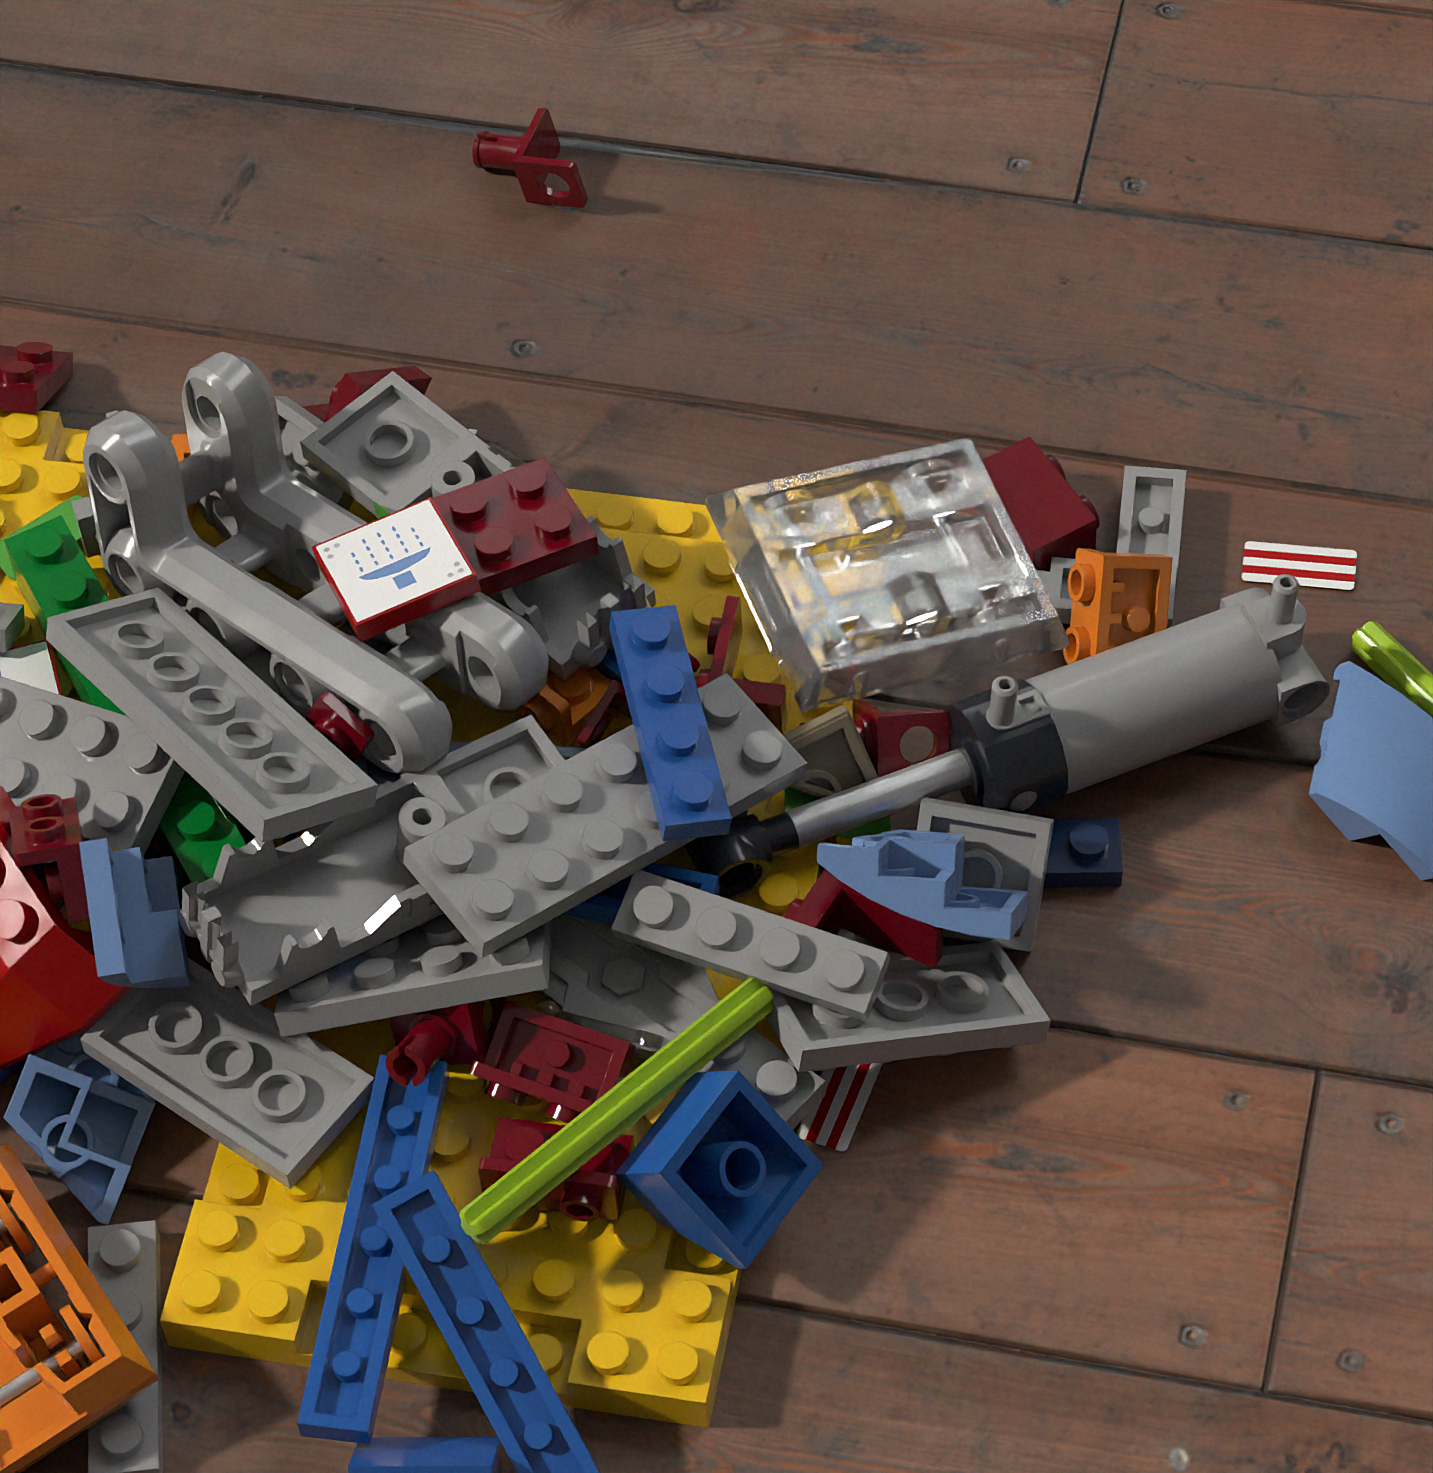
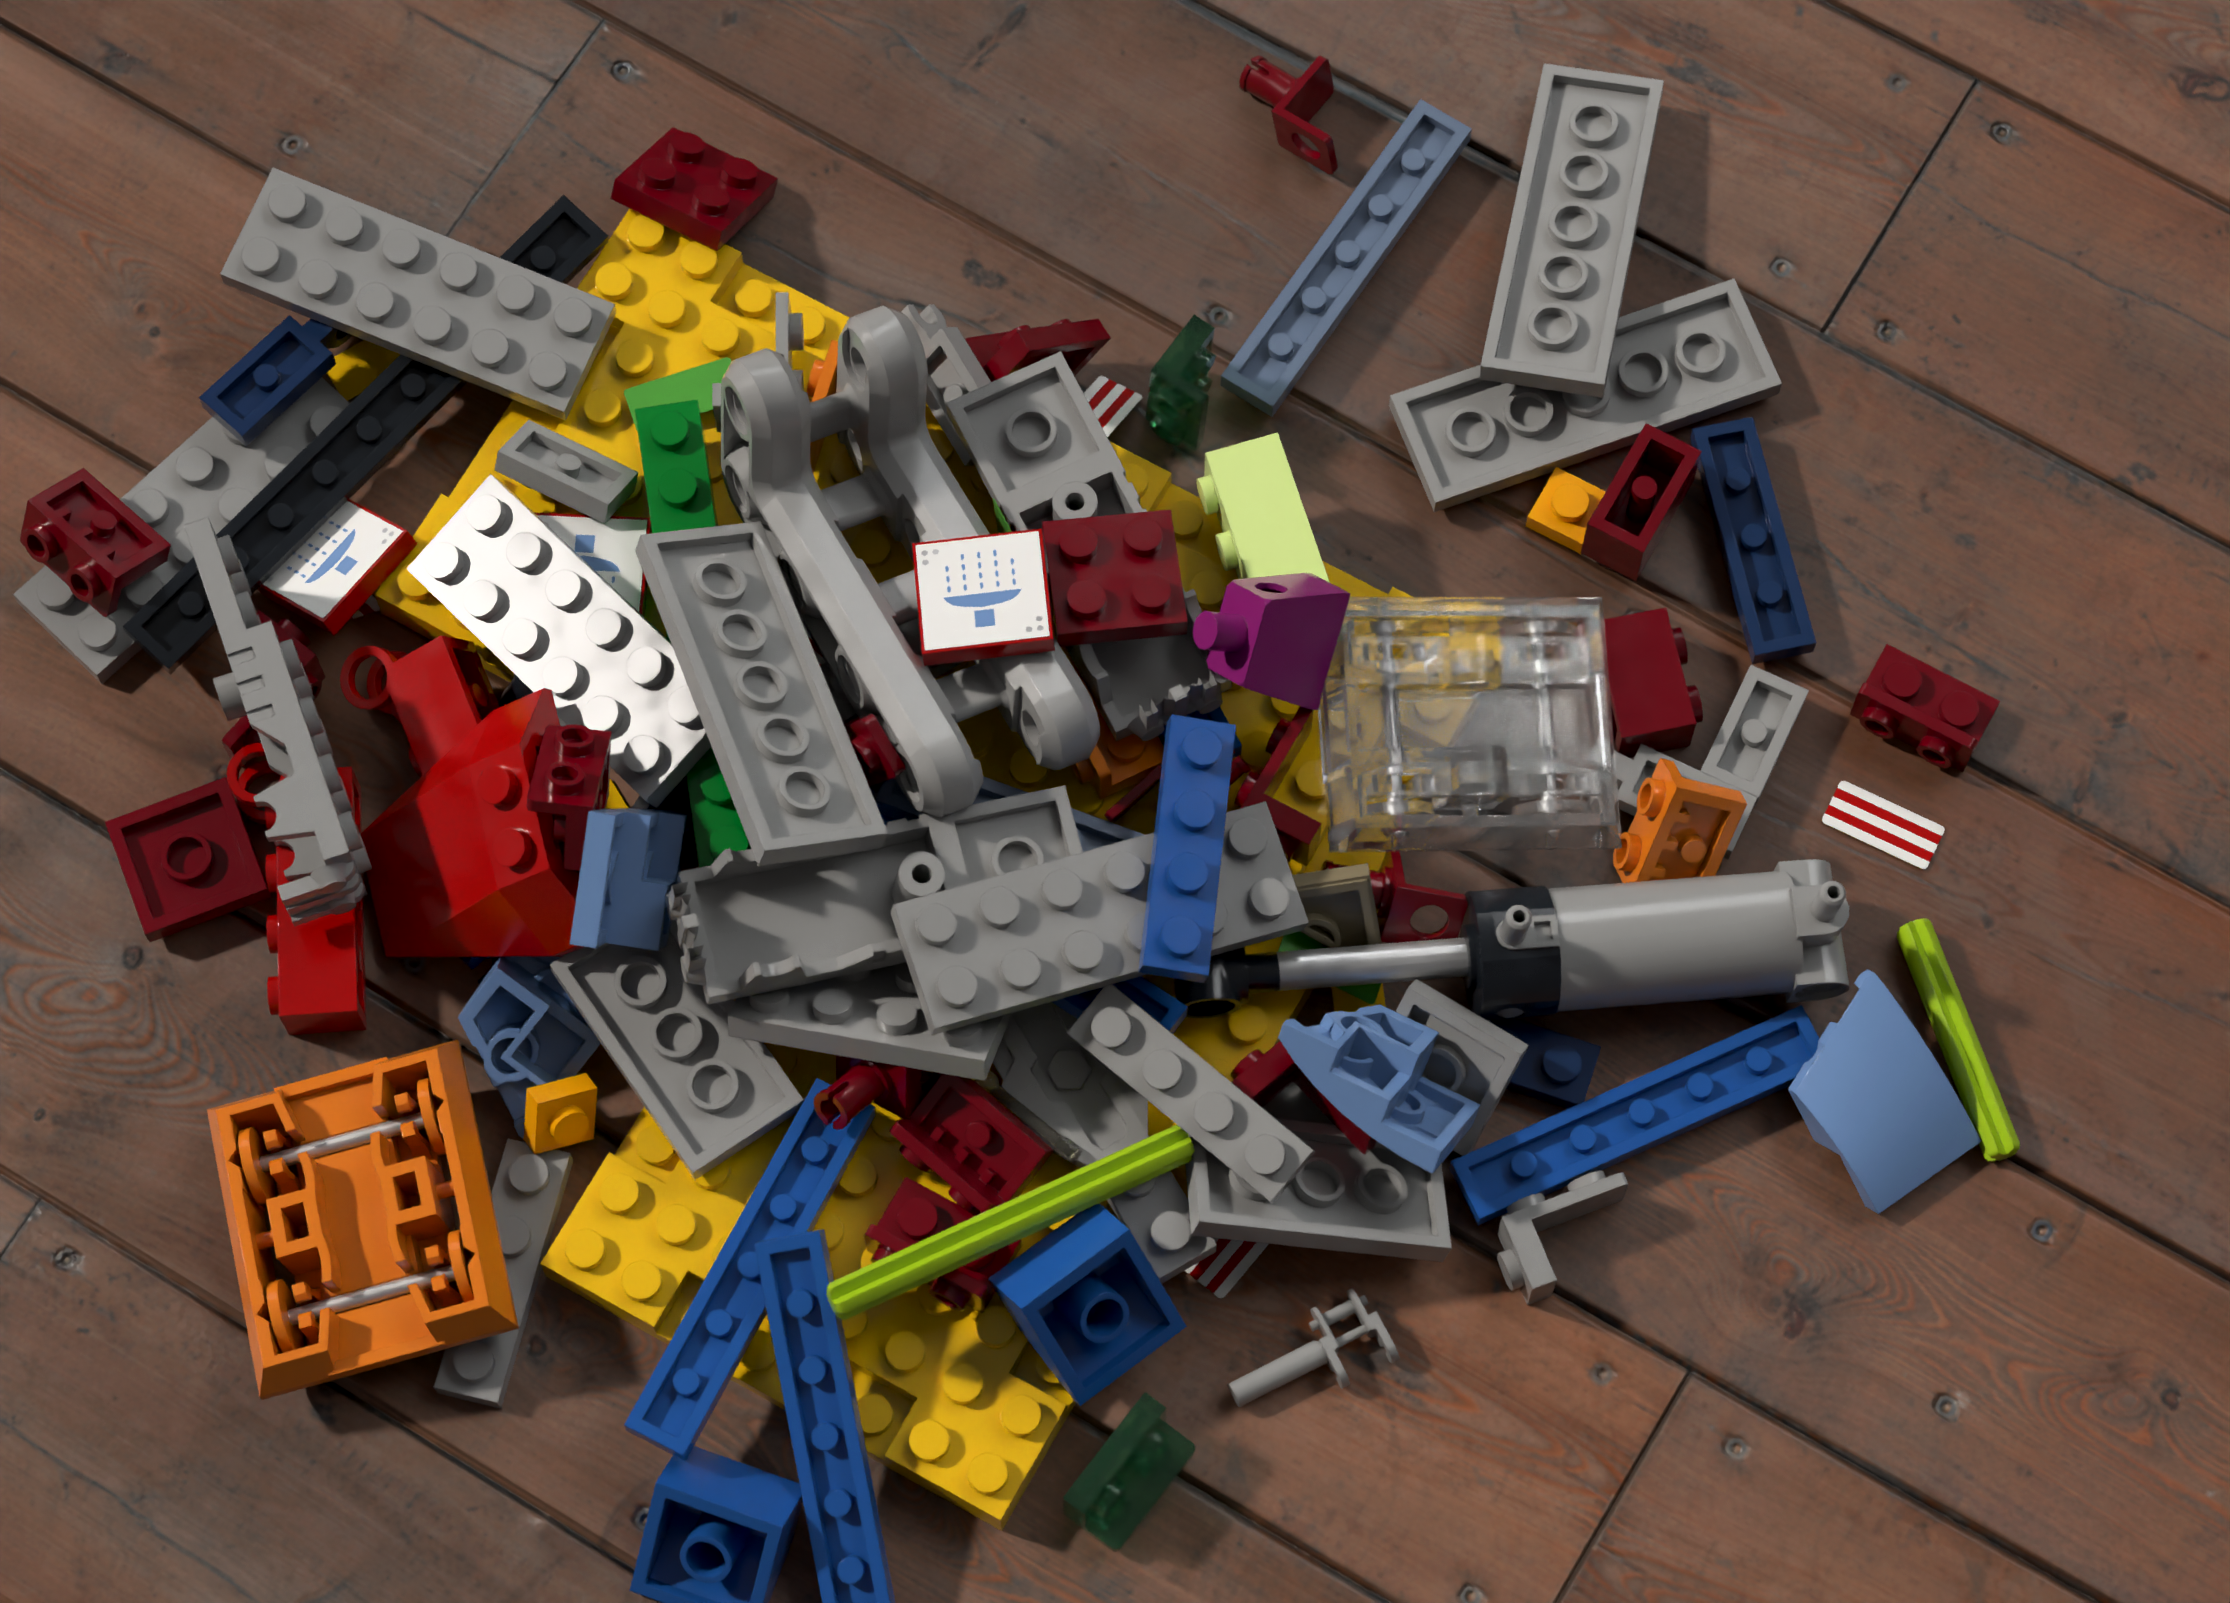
camera: 15 degrees right, 15 degrees up
(133, 1183) = (560, 1113): none -> light orange plate
(514, 395) = (1180, 386): none -> clear green bracket
(622, 265) = (1345, 258): none -> sand blue plate
(639, 481) = (1258, 511): none -> yellowish green brick
(683, 536) = (1275, 635): none -> magenta torso
(814, 1325) = (1128, 1475): none -> clear green bracket
(821, 179) = (1572, 231): none -> light grey plate
(882, 306) = (1665, 370): none -> light grey plate
(906, 401) = (1564, 509): none -> light orange plate
(959, 1163) = (1316, 1352): none -> light grey piece
(970, 365) = (1640, 502): none -> dark red brick
(1084, 373) = (1753, 541): none -> dark blue plate
(1112, 995) = (1524, 1258): none -> light grey bracket
(1173, 867) = (1636, 1115): none -> blue plate
(1295, 459) = (1923, 709): none -> dark red bracket

